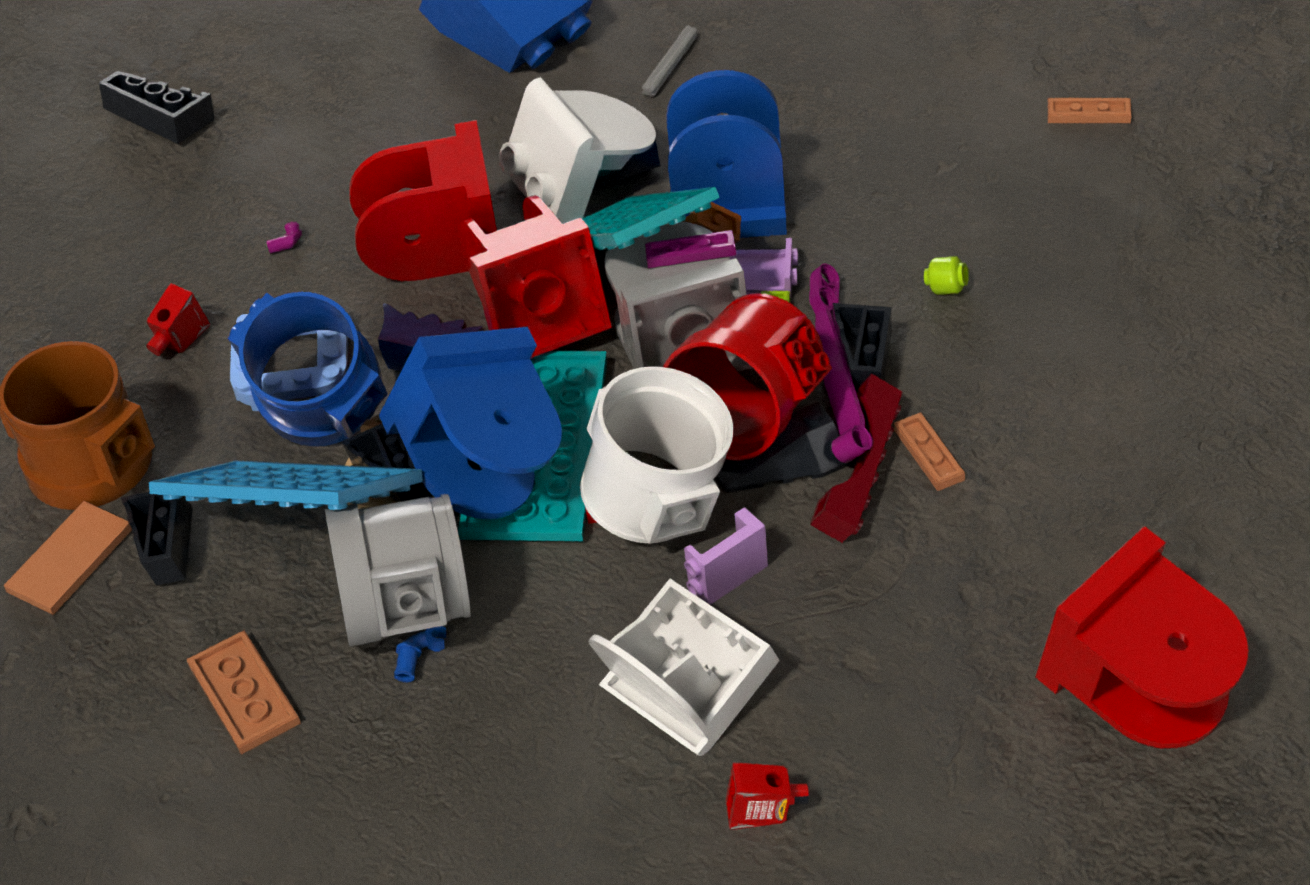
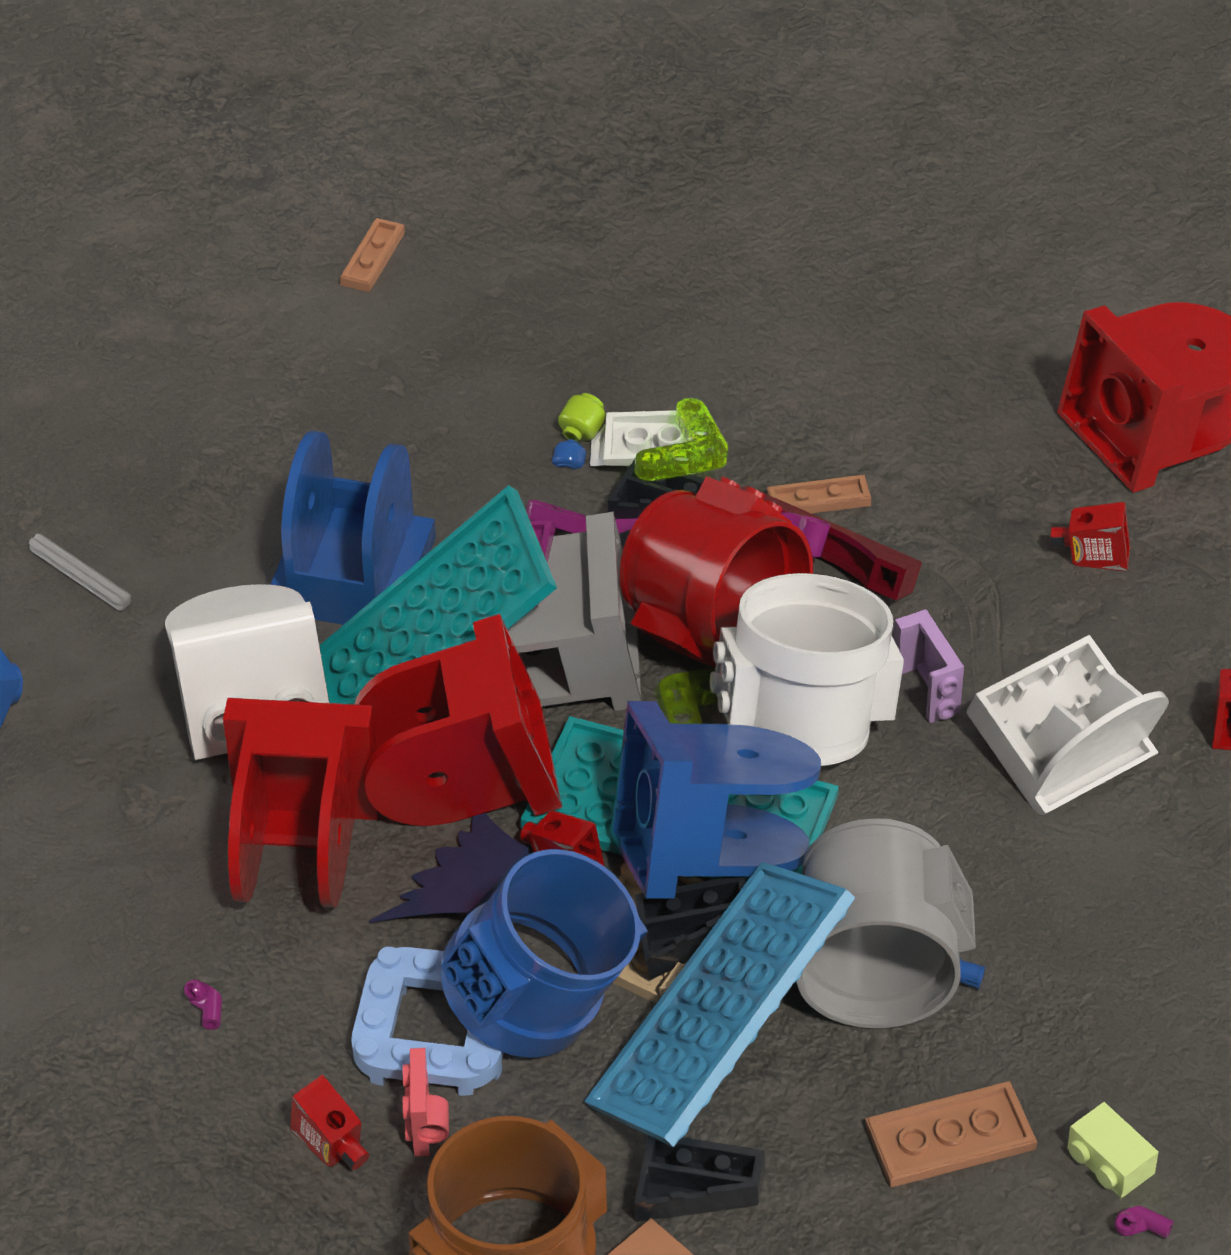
camera: 80 degrees left, 0 degrees up
(171, 834) = (1142, 1219): none -> magenta arm
(198, 360) = (424, 1114): none -> coral plate
(233, 799) = (1112, 1150): none -> yellowish green brick
(909, 284) = (569, 454): none -> blue piece
(912, 340) = (659, 461): none -> clear neon green beam
(937, 326) = (631, 432): none -> white slope
(942, 637) = (1096, 536): none -> red torso

